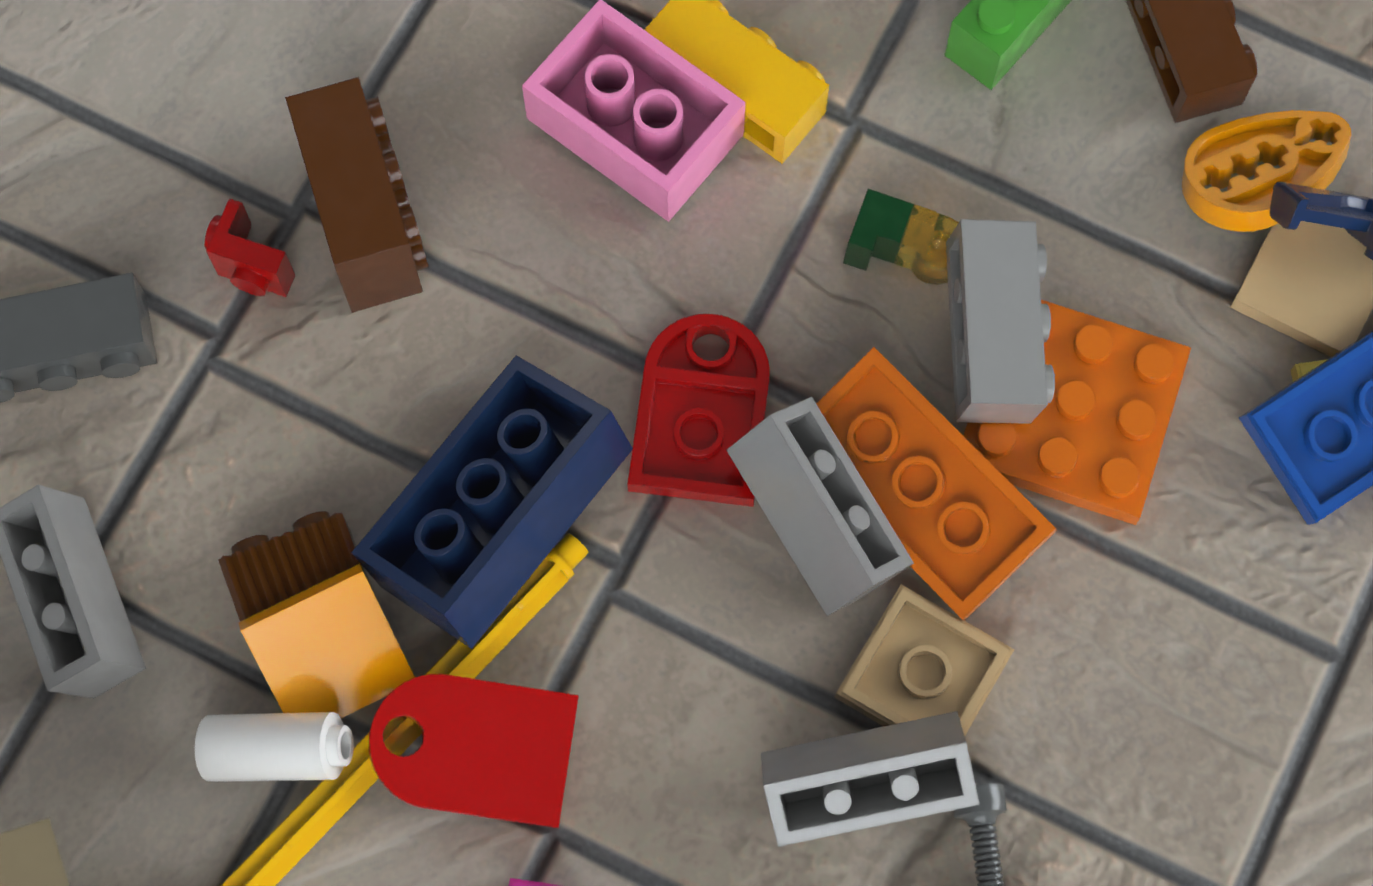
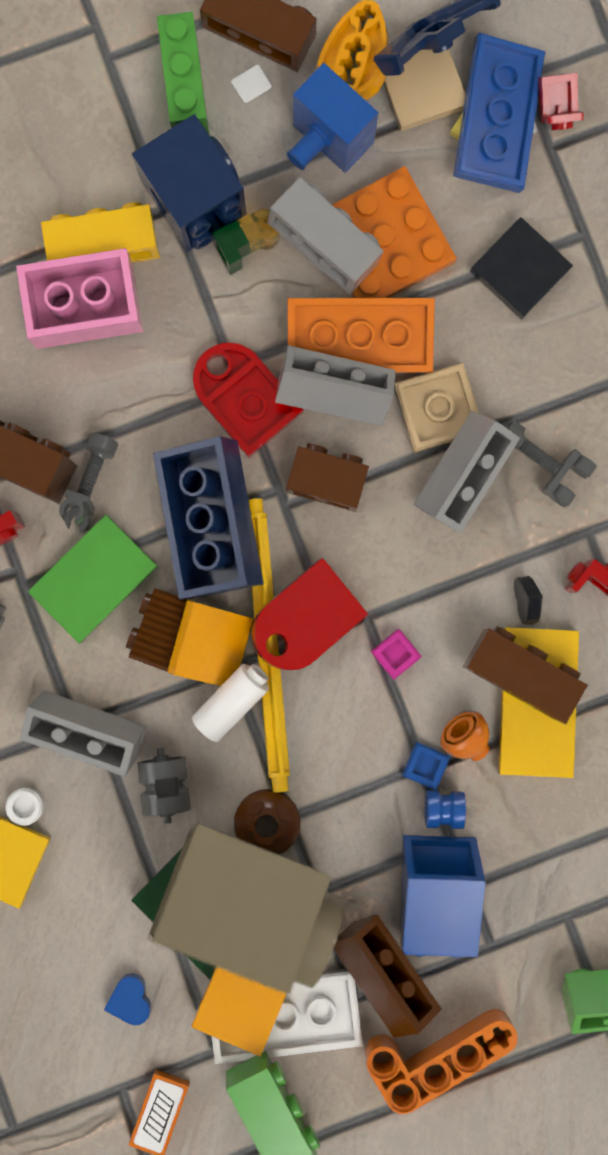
camera: 50 degrees left, 15 degrees up
(80, 760) = (164, 786): none -> dark grey wheel
(288, 434) = (92, 579): none -> bright green tile
(467, 297) = (80, 502): none -> dark grey bar
(692, 608) = (327, 477): none -> reddish brown brick
(903, 108) = (191, 182): none -> dark blue brick
(1104, 82) = (251, 83): none -> white sticker
(1149, 203) = (331, 120): none -> blue brick
(1212, 614) = (521, 268): none -> black tile

